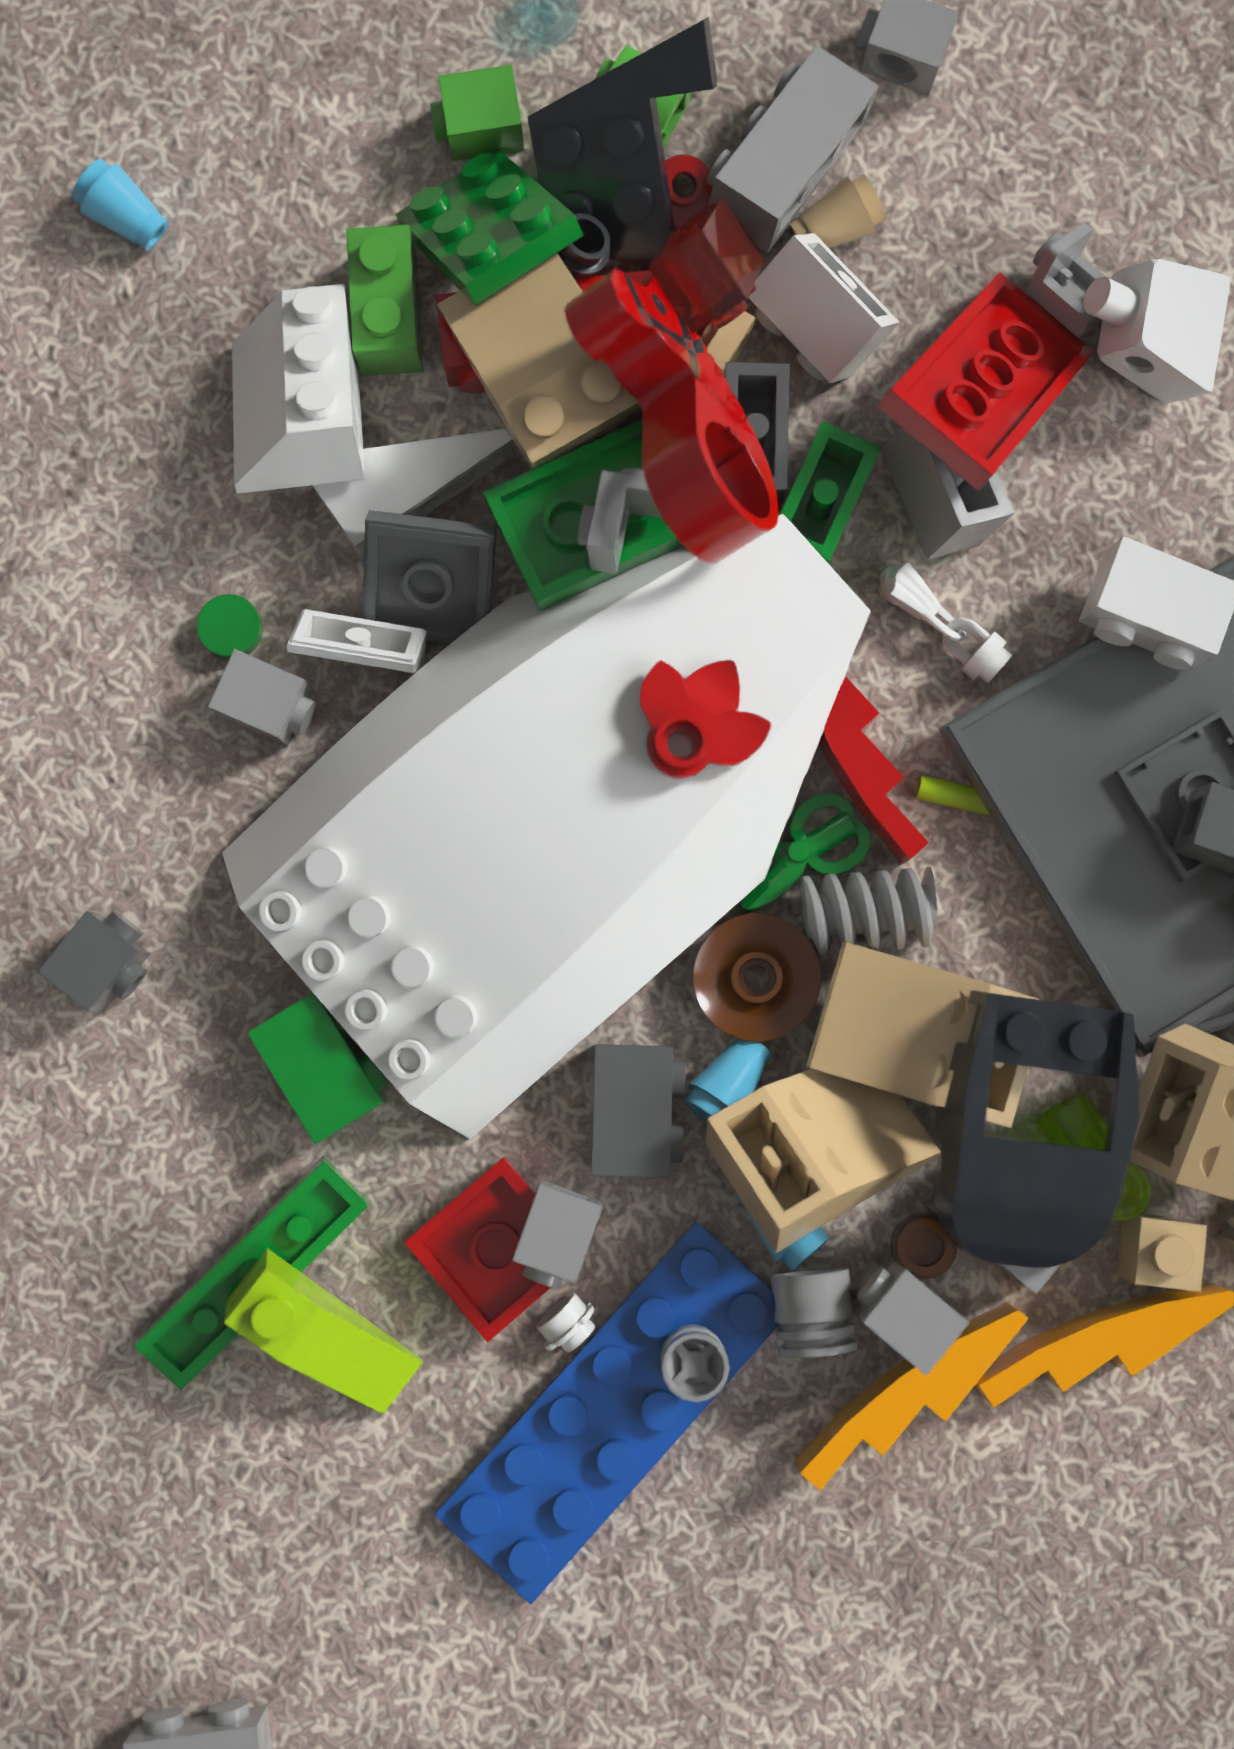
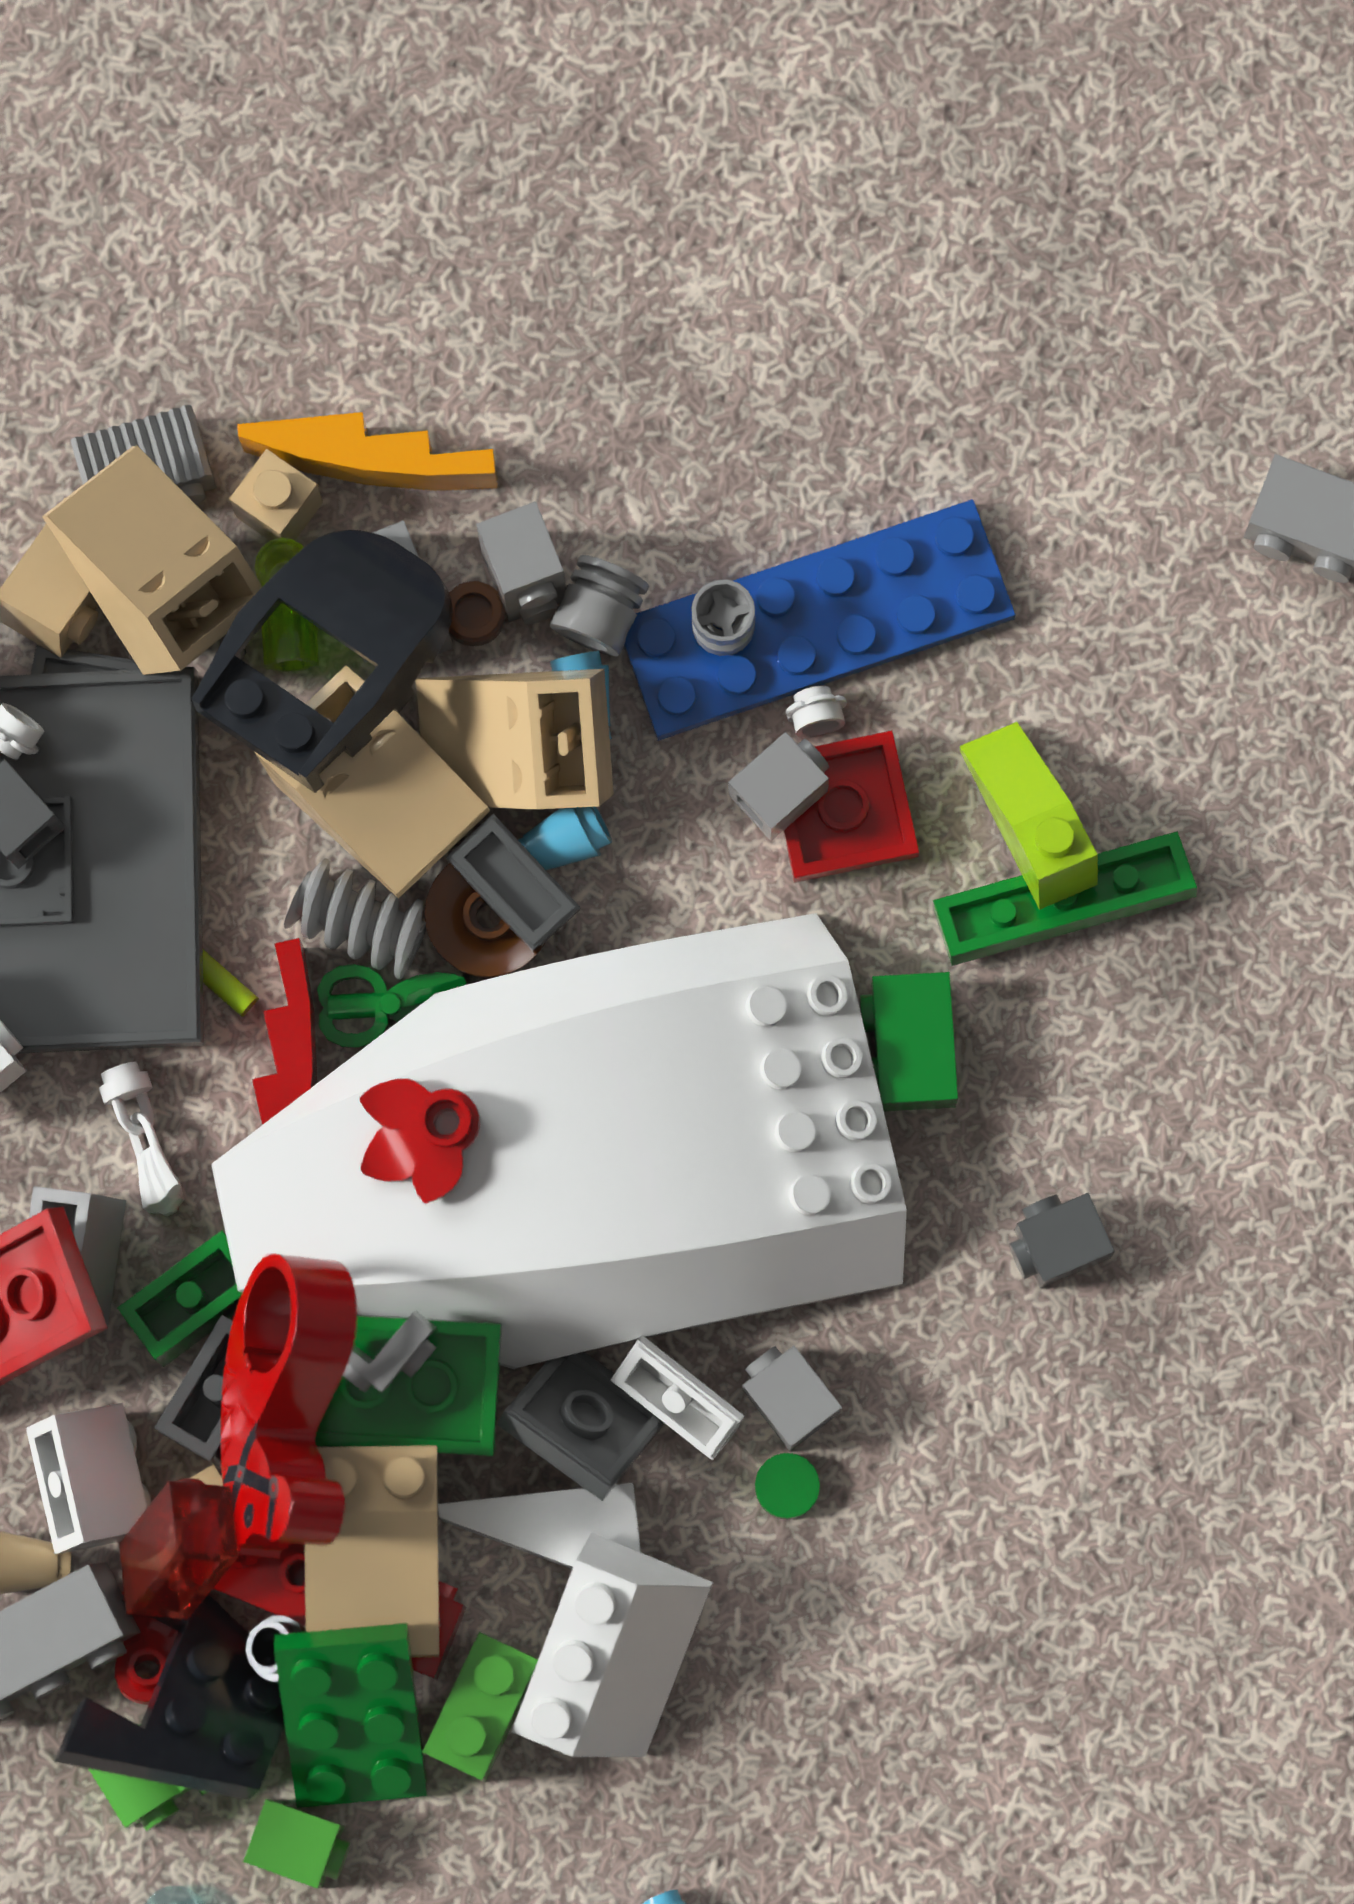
camera: 145 degrees left, 5 degrees down
(635, 1111) = (658, 857): dark grey brick -> none
(749, 1013) = (513, 883): none -> dark grey tile
(902, 1391) = (564, 503): light orange slope -> none

